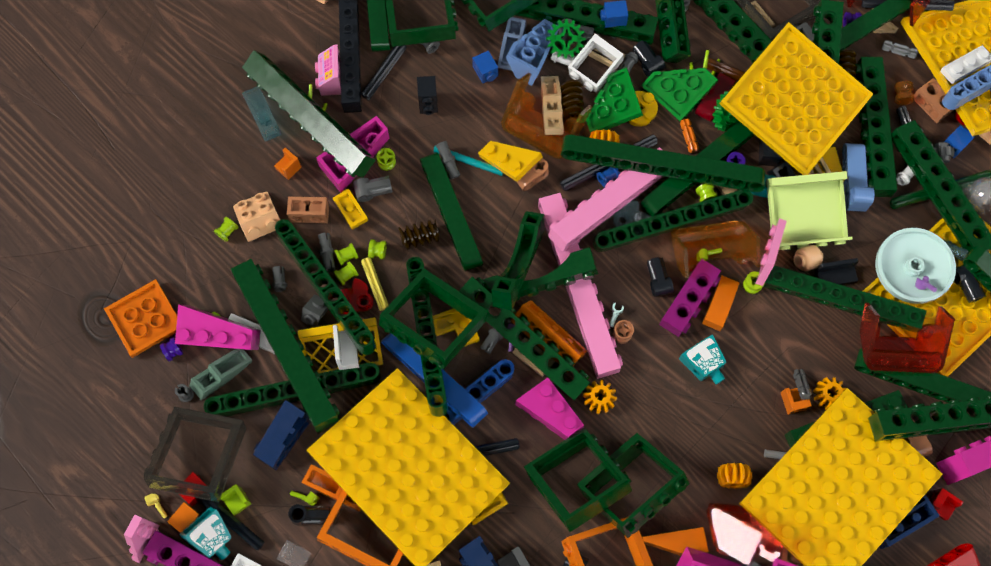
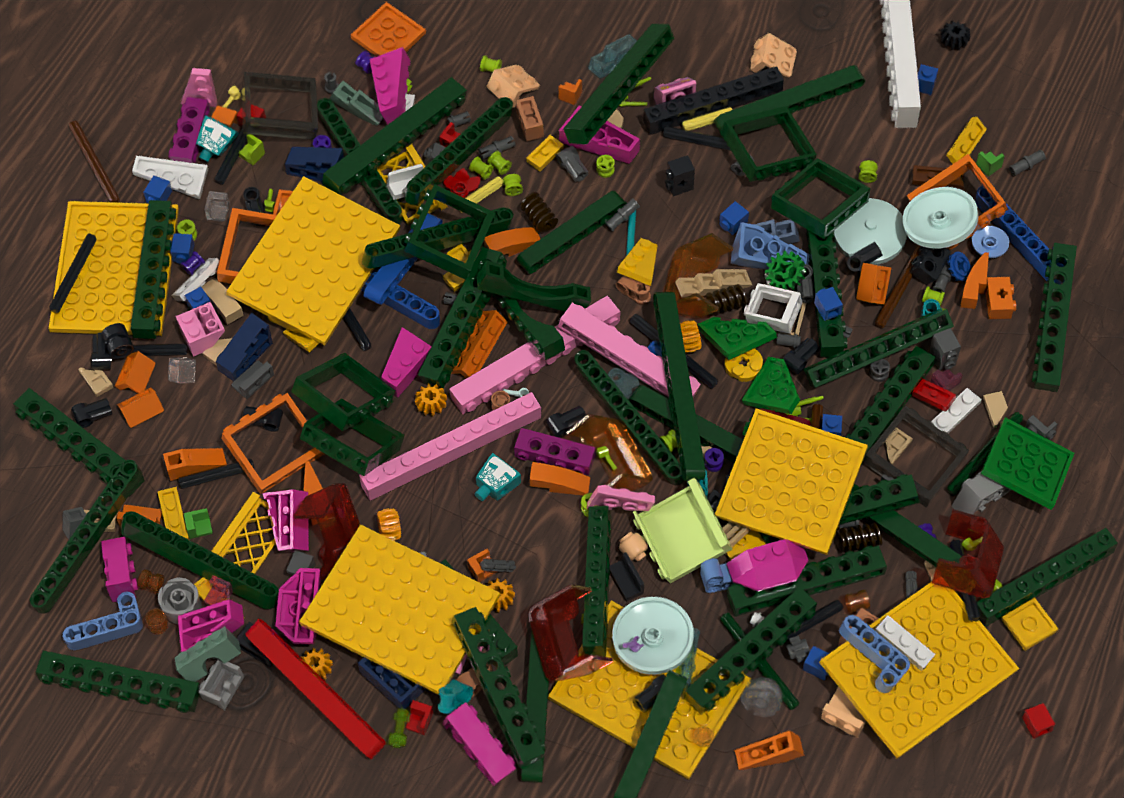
camera: 75 degrees right, 10 degrees down
(256, 420) = (322, 141): none -> dark purple wheel
(300, 291) = (448, 135): none -> red panel
(365, 56) = (703, 120): none -> light yellow axle
(443, 263) = (512, 241): none -> orange slope
(658, 385) = (451, 446): none -> bright pink brick
(689, 135) = (730, 414): orange axle -> none
(732, 55) = (832, 424): none -> blue brick
(866, 149) = (768, 565): none -> dark pink wedge
(942, 462) = (453, 696): none -> teal piece
(961, 529) = (398, 738): none -> clear neon green bar

